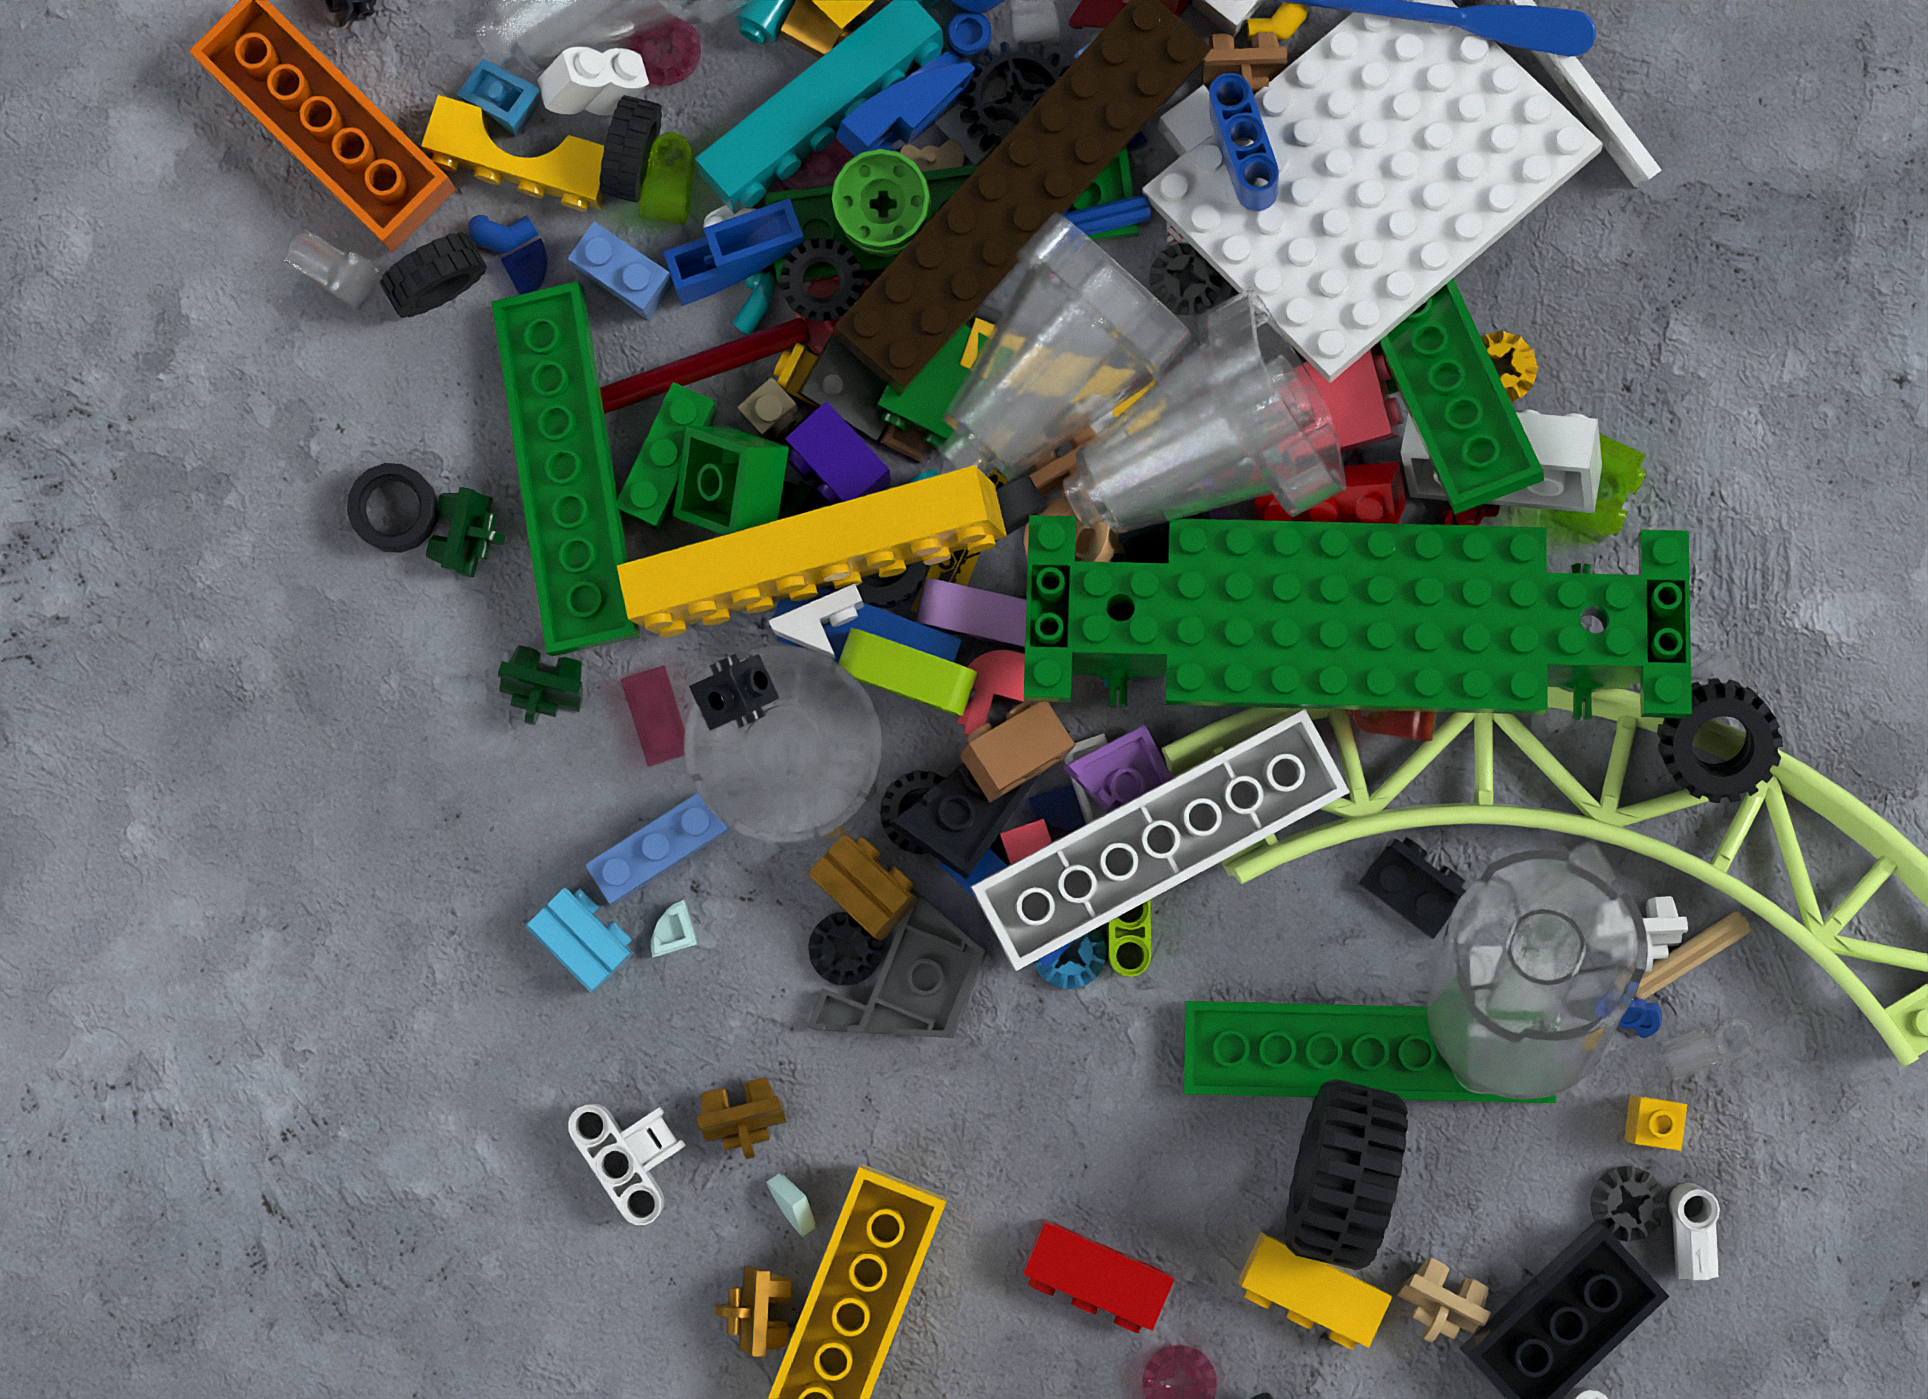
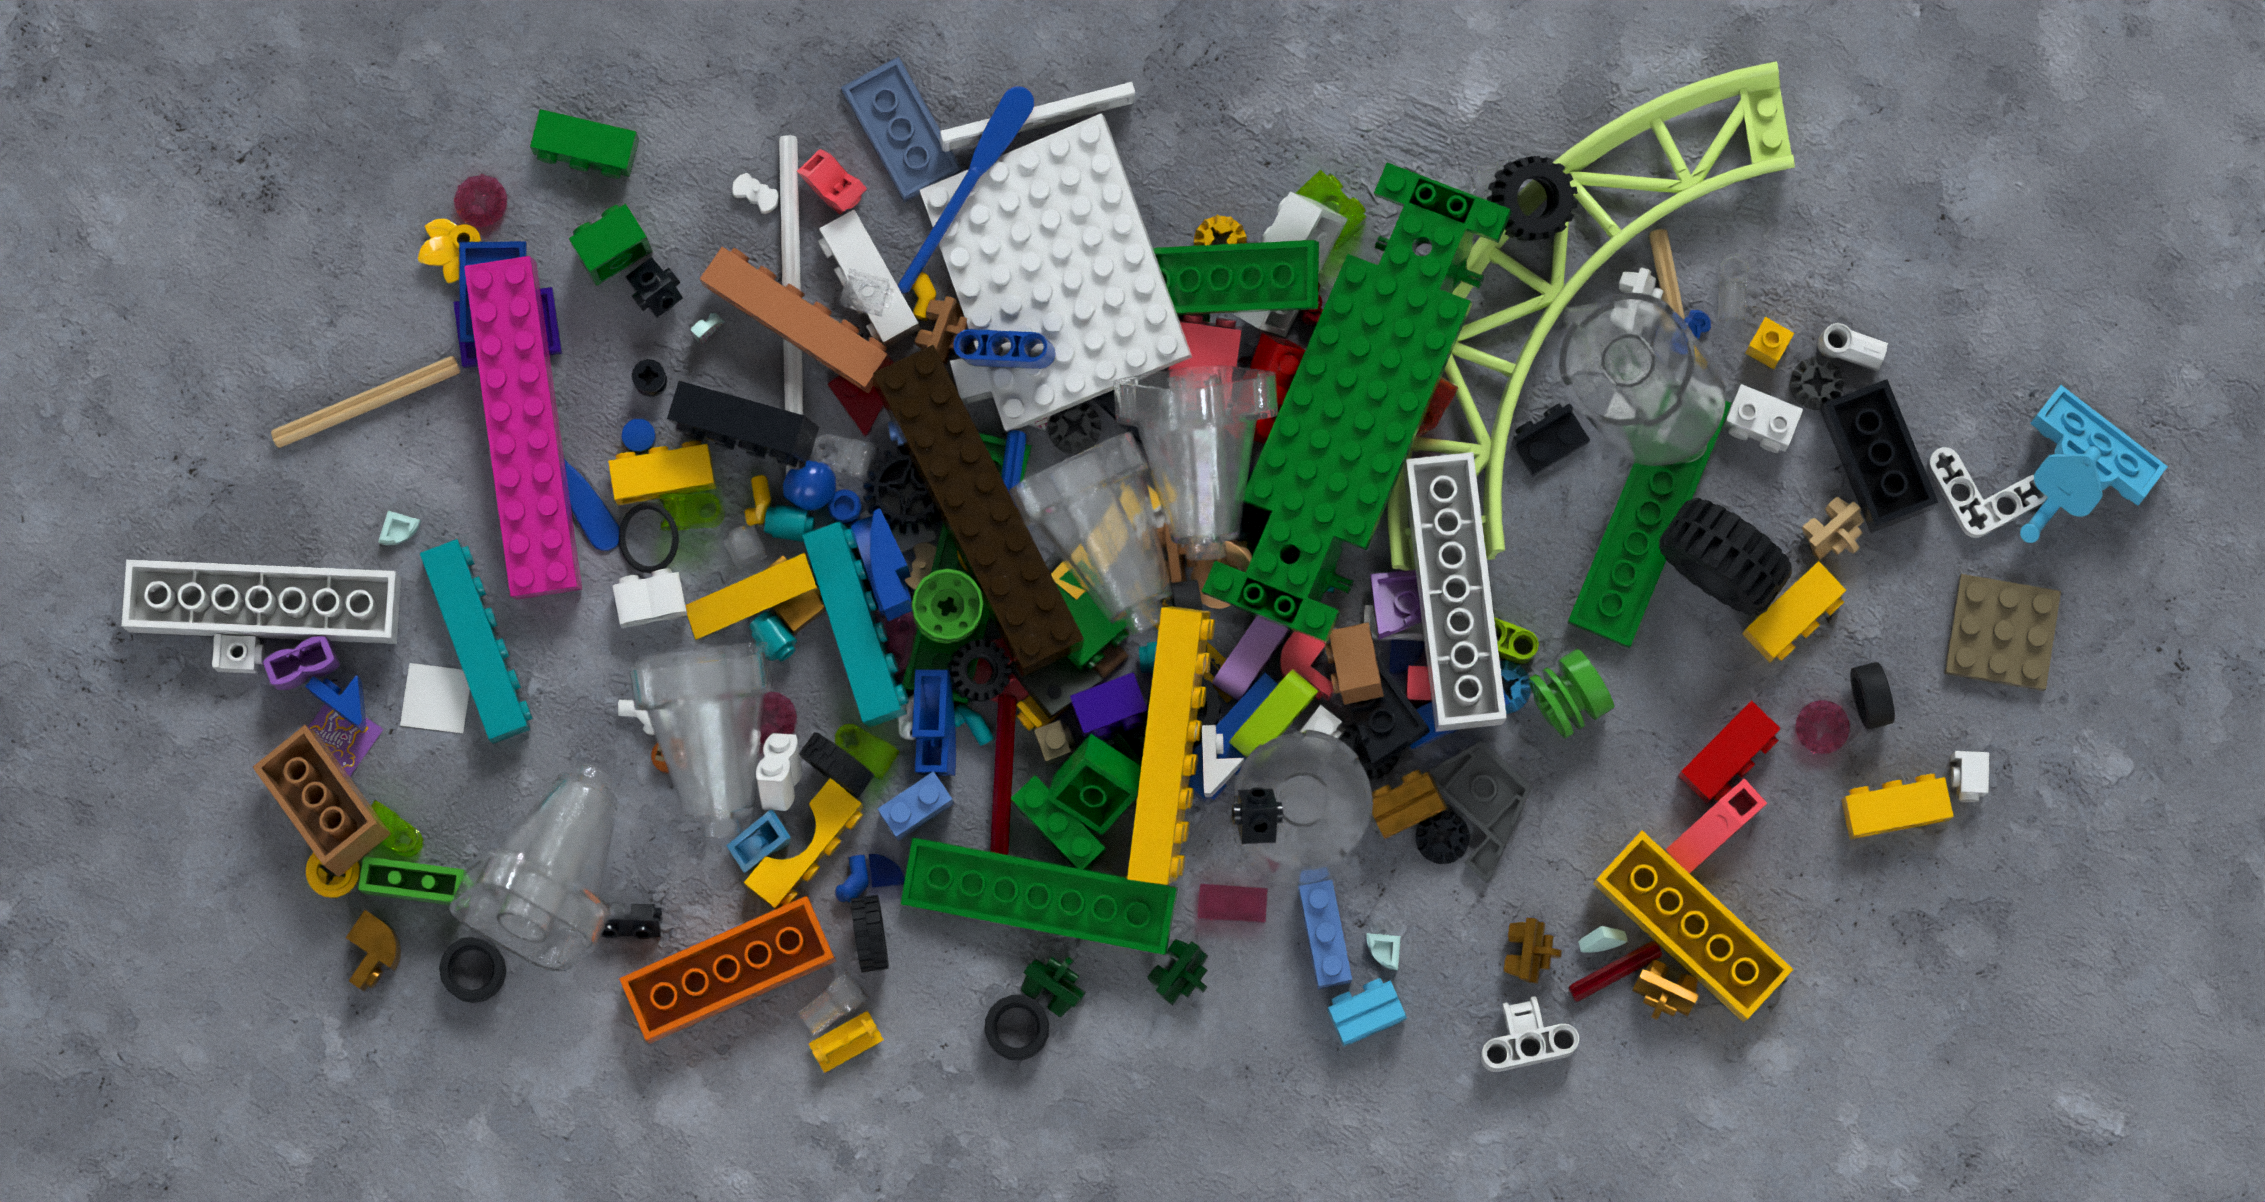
camera: 65 degrees left, 5 degrees down
(294, 303) = (846, 1041): none -> yellow hinge
(759, 1235) = (1615, 971): none -> dark red axle
(918, 743) = (1325, 722): none -> white brick
(994, 1295) = (1716, 826): none -> coral slope
(1090, 1041) = (1571, 693): none -> bright green wheel
(1552, 1151) = (1762, 419): none -> white brick

